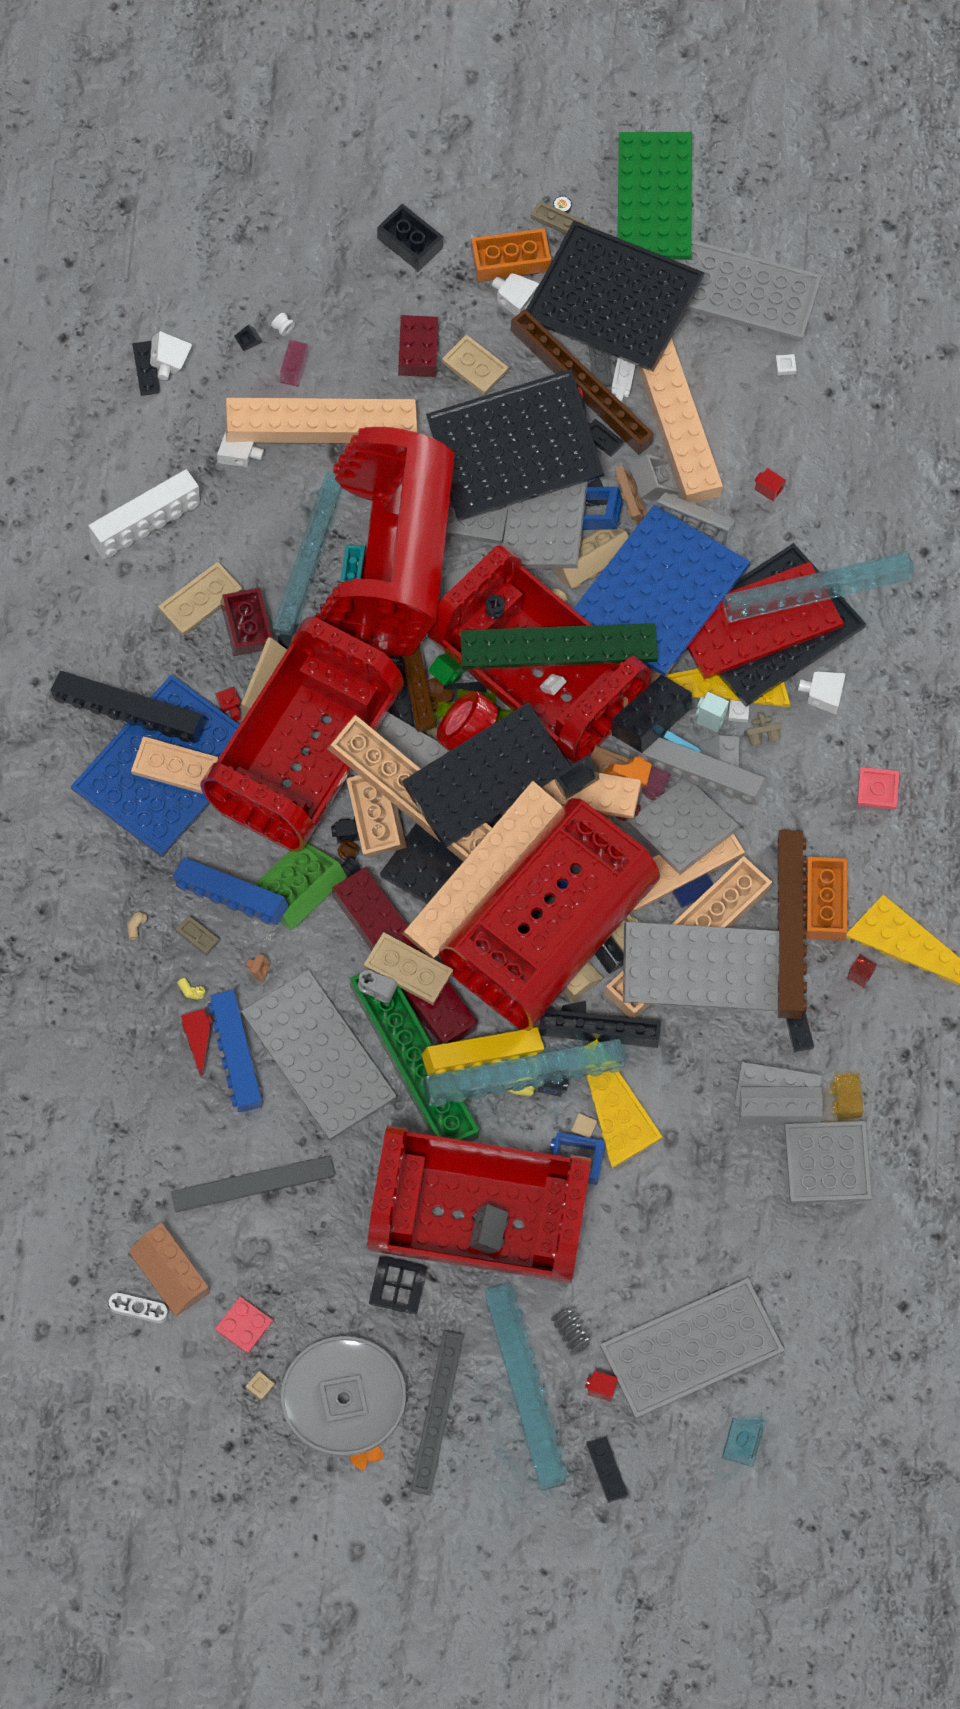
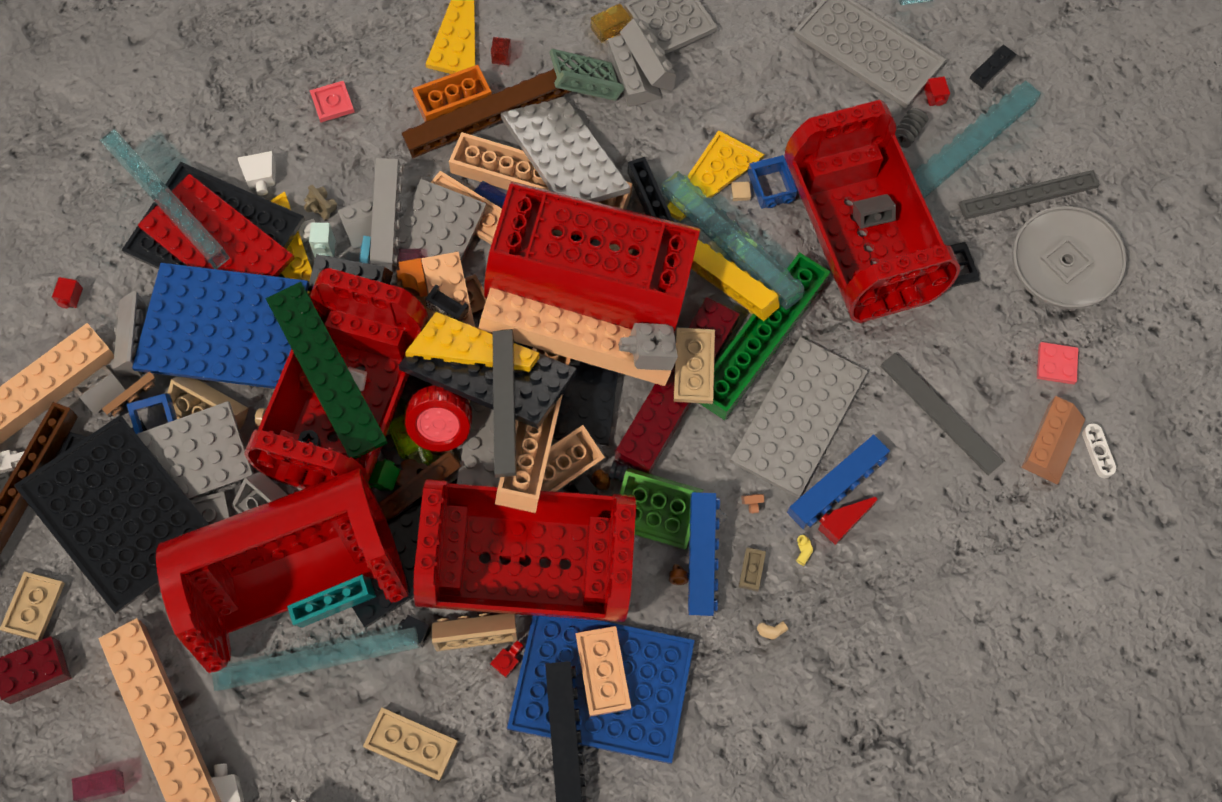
camera: 115 degrees left, 0 degrees up
(228, 866) = (678, 575): none -> reddish brown tile
(246, 621) = (418, 680): dark red brick -> none
(260, 1386) = (1097, 325): tan plate -> none
(378, 987) = (725, 380): light grey piece -> none
(437, 760) = (504, 404): none -> dark grey tile
(444, 914) = (651, 346): none -> light grey hinge
(523, 760) = (463, 344): none -> yellow wing
(772, 1022) = (583, 82): none -> sand green fence

